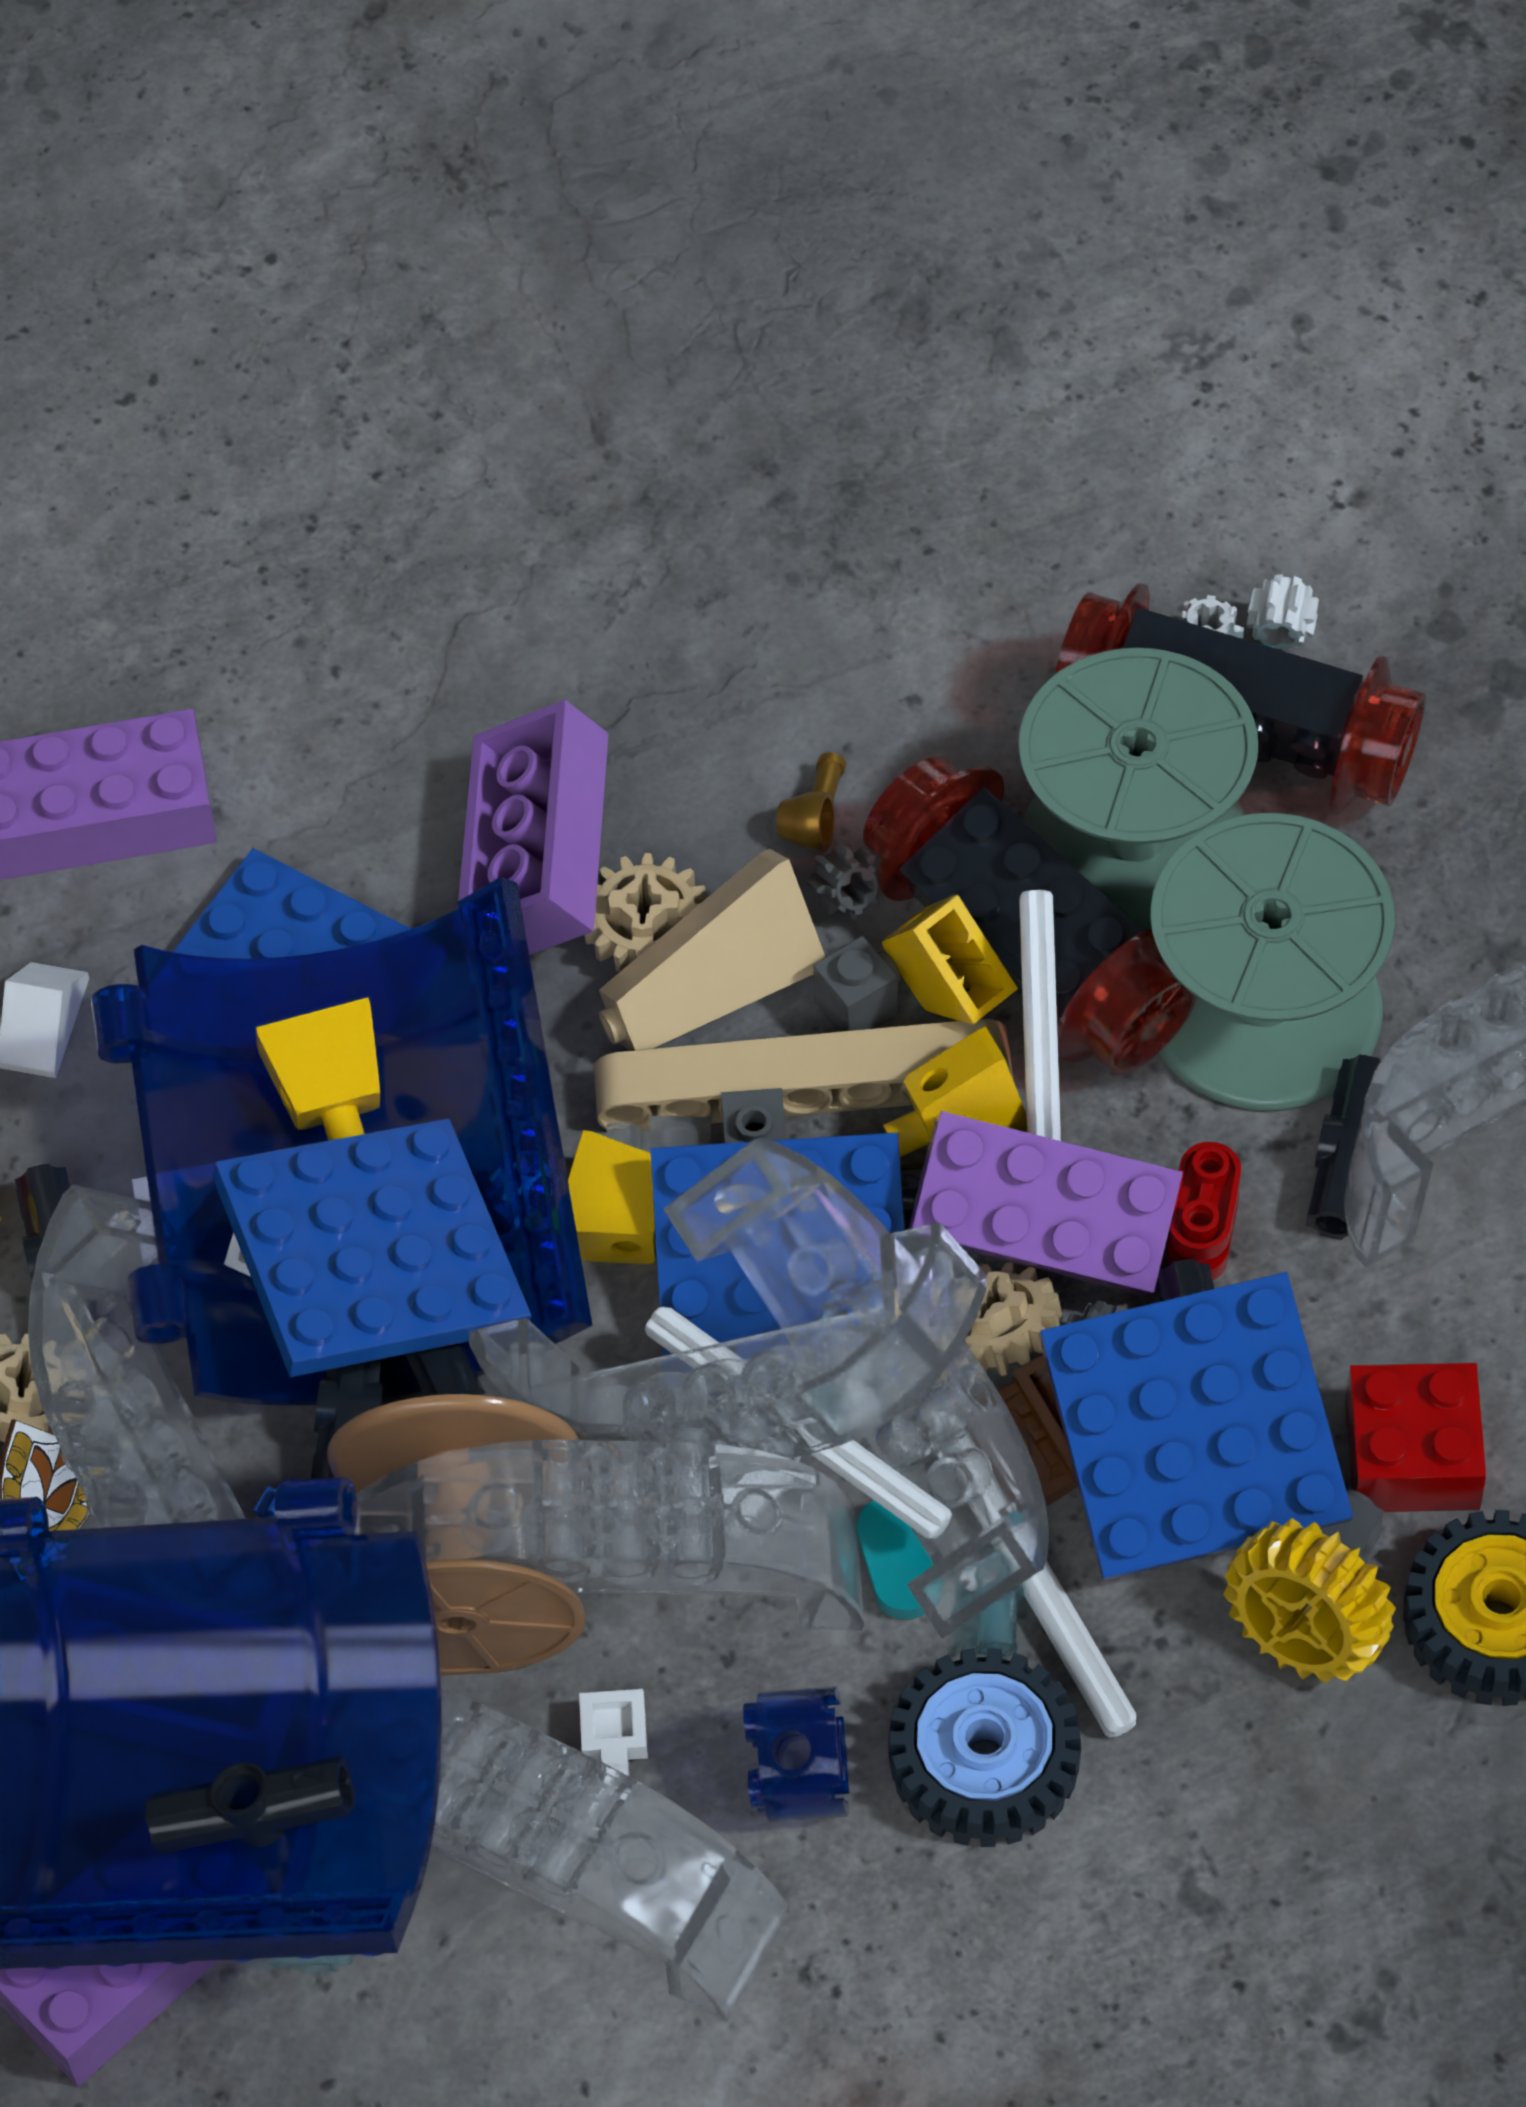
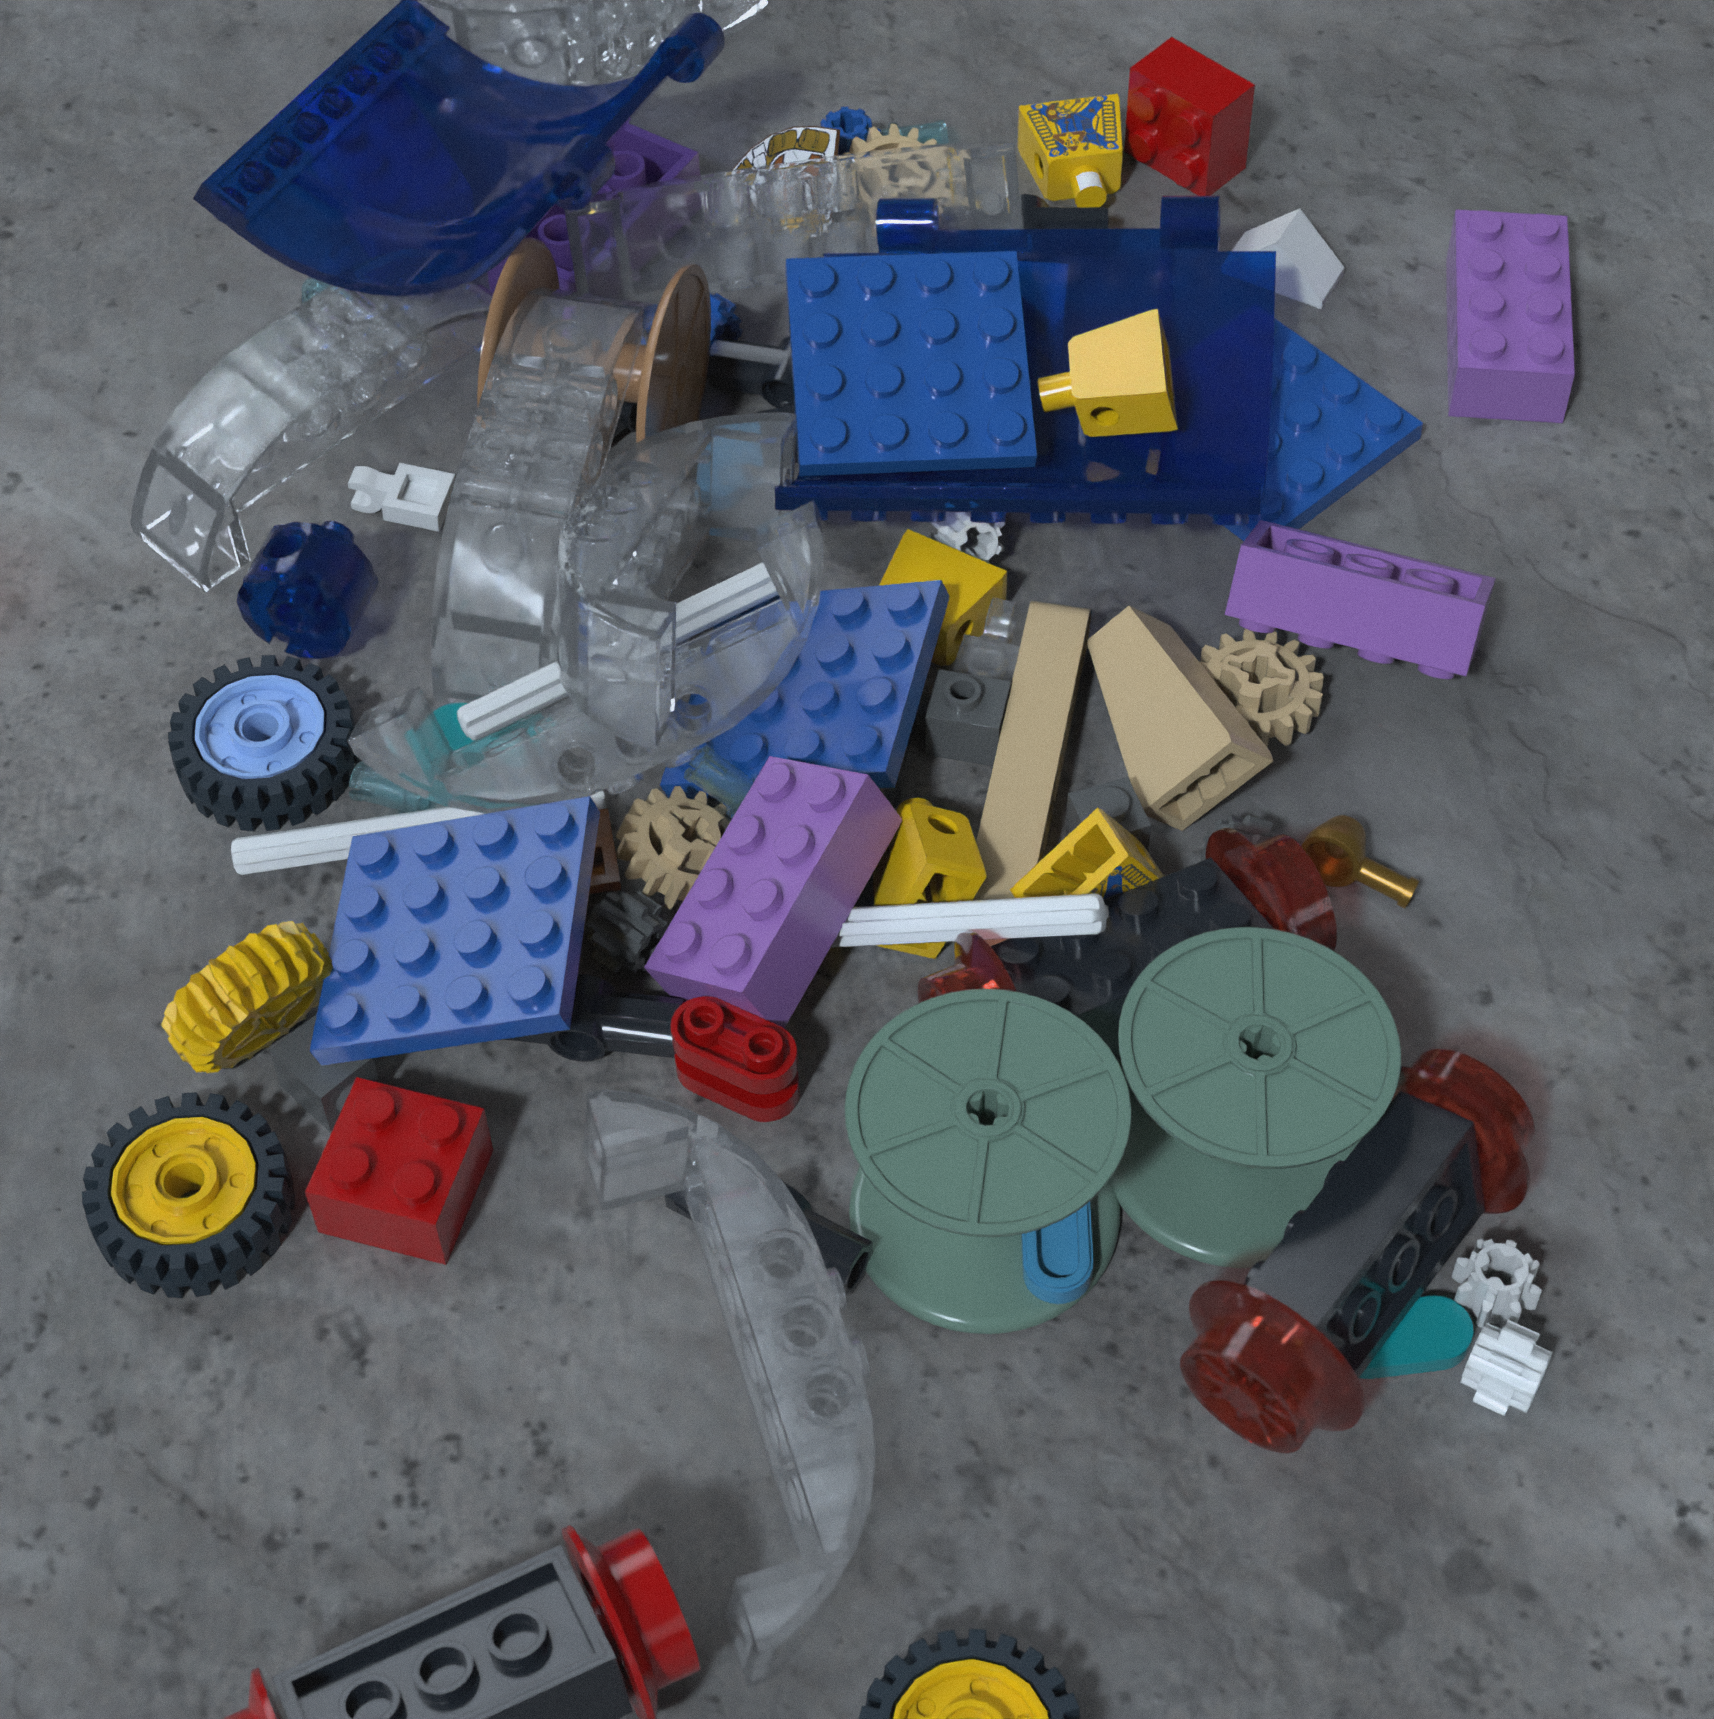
camera: 105 degrees right, 5 degrees down
(250, 1805) = (387, 165): black piece -> none

